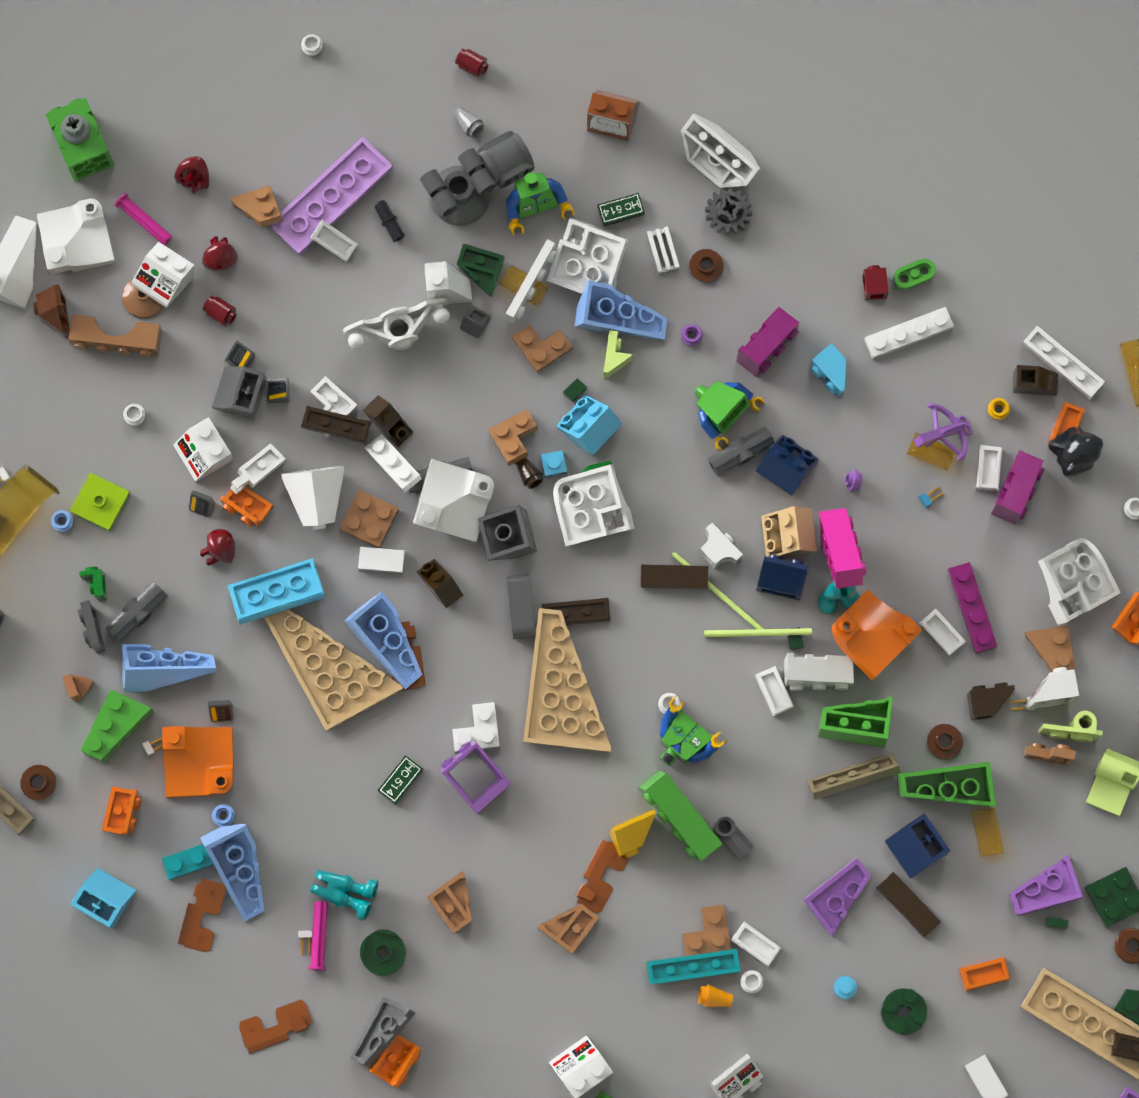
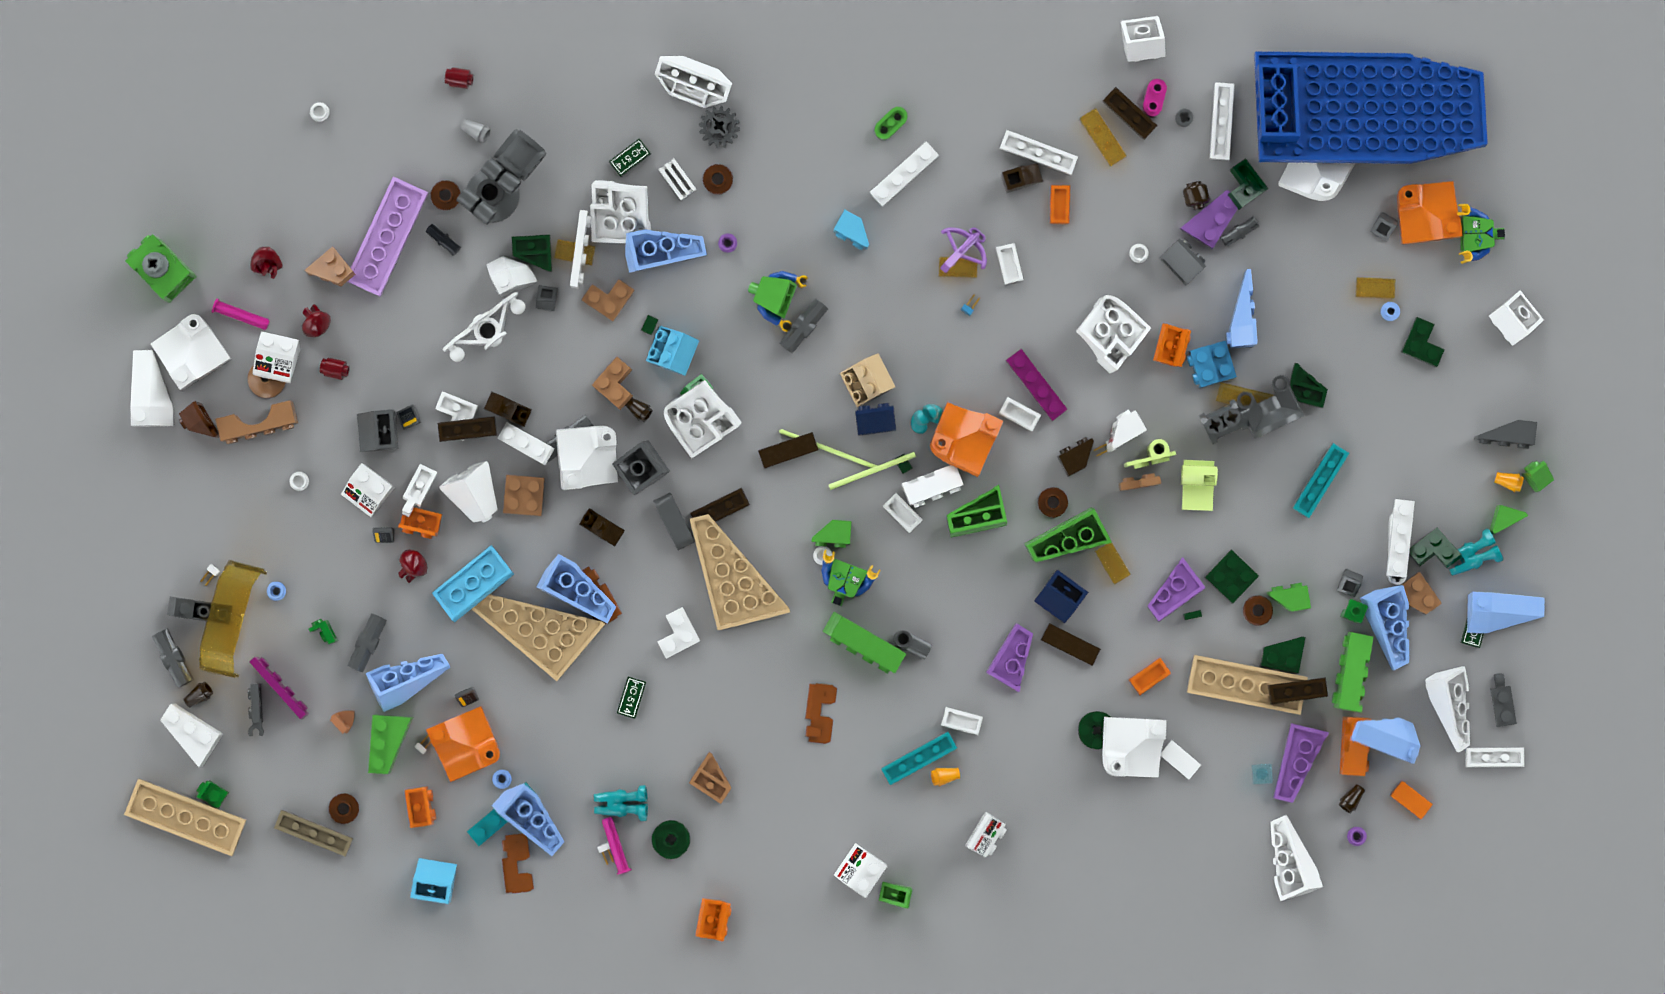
camera: 20 degrees left, 10 degrees up
(26, 632) = (285, 693): none -> magenta plate
(93, 633) = (340, 676): dark grey plate -> none
(100, 502) = (300, 563): lime plate -> none
(240, 355) = (365, 400): slope -> none
(289, 1018) = (617, 917): dark orange piece -> none
(334, 240) = (404, 274): white tile -> none
(381, 560) = (547, 525): white tile -> none
(381, 1031) = (693, 901): dark grey wing -> none
(406, 186) = (438, 188): none -> reddish brown piece
(490, 792) = (706, 682): medium lavender window -> none
(533, 196) = (554, 175): torso -> none
(553, 464) = (655, 393): medium azure plate -> none
(570, 927) = (810, 763): medium nougat wing -> none
(611, 114) = (592, 78): dark orange slope -> none
(614, 360) = (671, 289): yellowish green slope -> none
(631, 834) = (832, 672): yellow slope -> none
(691, 683) = (834, 532): none -> bright green slope
(715, 933) = (927, 727): medium nougat plate -> none
(719, 547) = (815, 412): white brick -> none
(751, 981) = (969, 752): white plate -> none
(768, 342) = (792, 226): magenta wedge -> none
(787, 464) = (845, 323): dark blue slope -> none
(841, 548) = (914, 382): dark pink wedge -> none
(845, 987) = (1044, 728): medium azure plate -> none
(853, 480) = (903, 316): medium lavender plate -> none
(853, 776) = (990, 559): dark tan plate -> none
(875, 283) = (861, 142): dark red brick -> none
(939, 1043) = (1133, 745): none -> white slope
(1001, 403) = (1002, 205): yellow plate -> none
(1018, 487) = (1038, 272): magenta wedge -> none
(1053, 647) = (1113, 393): medium nougat wing -> none
(1082, 449) = (1077, 220): black piece -> none

